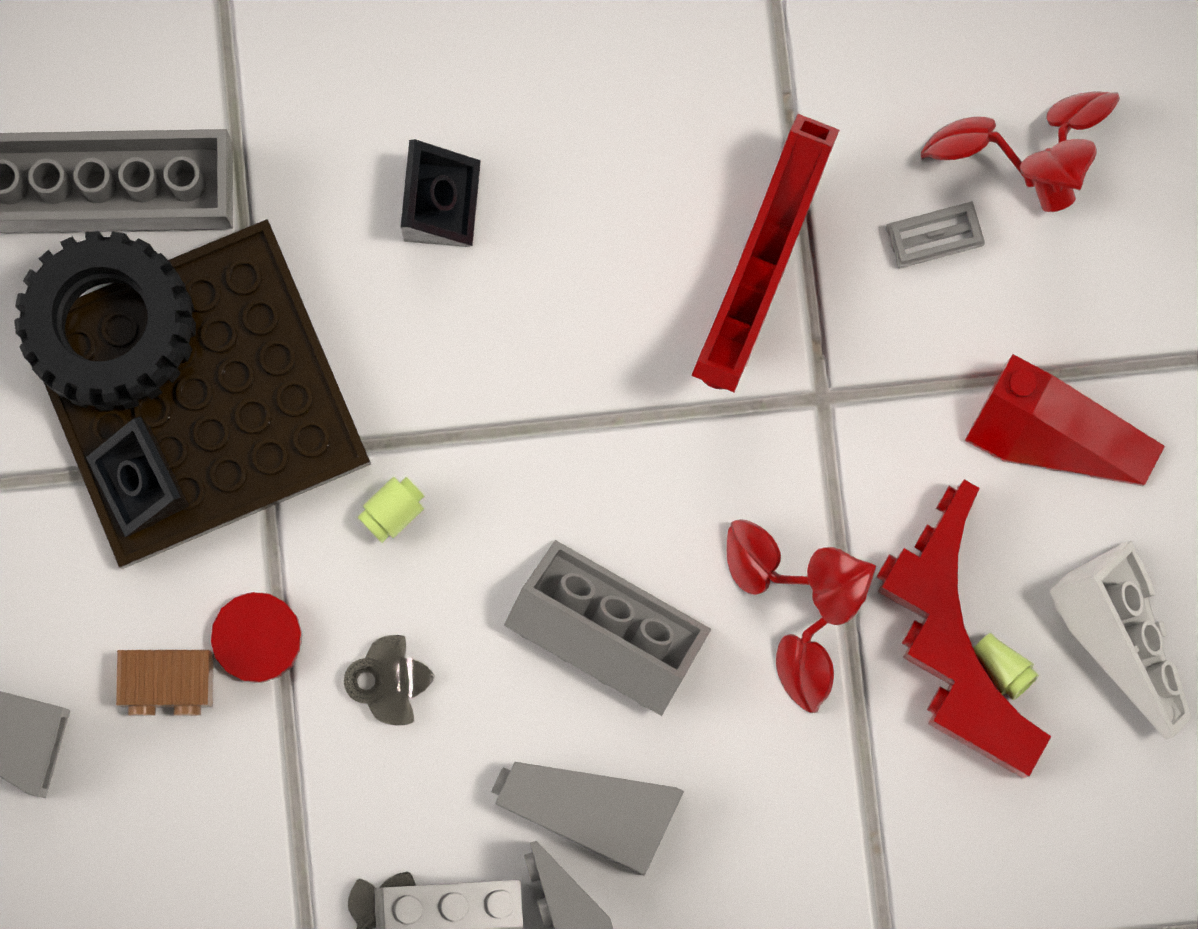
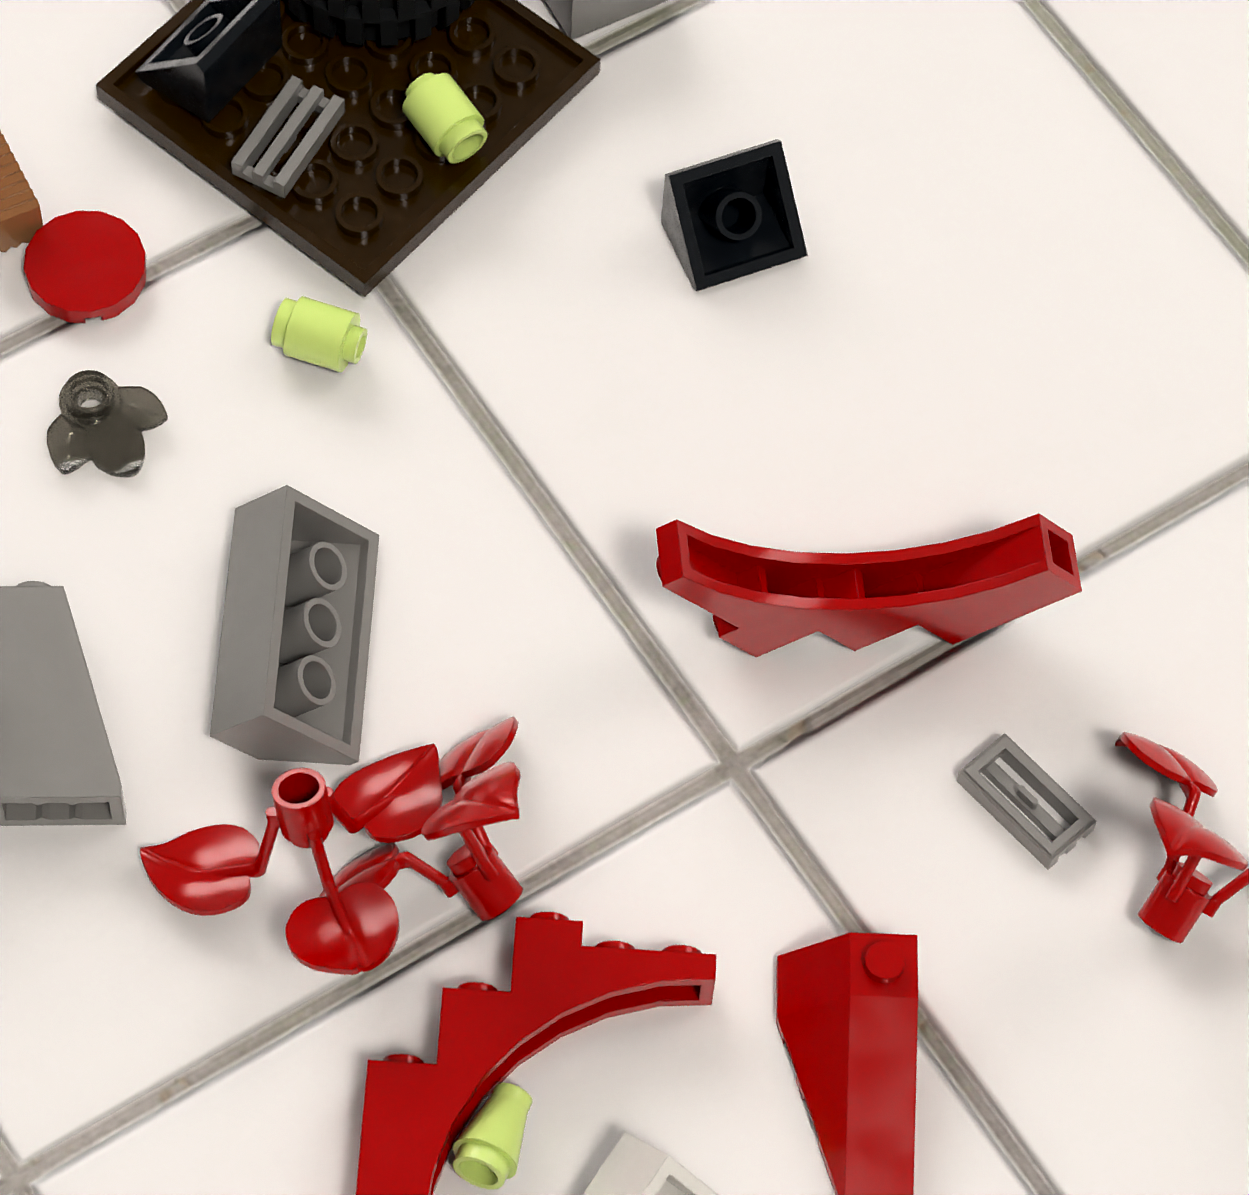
camera: 60 degrees right, 20 degrees down
(210, 427) = (308, 101): none -> light grey tile
(273, 348) = (444, 117): none -> yellowish green brick
(852, 693) = (333, 934): none -> red plant

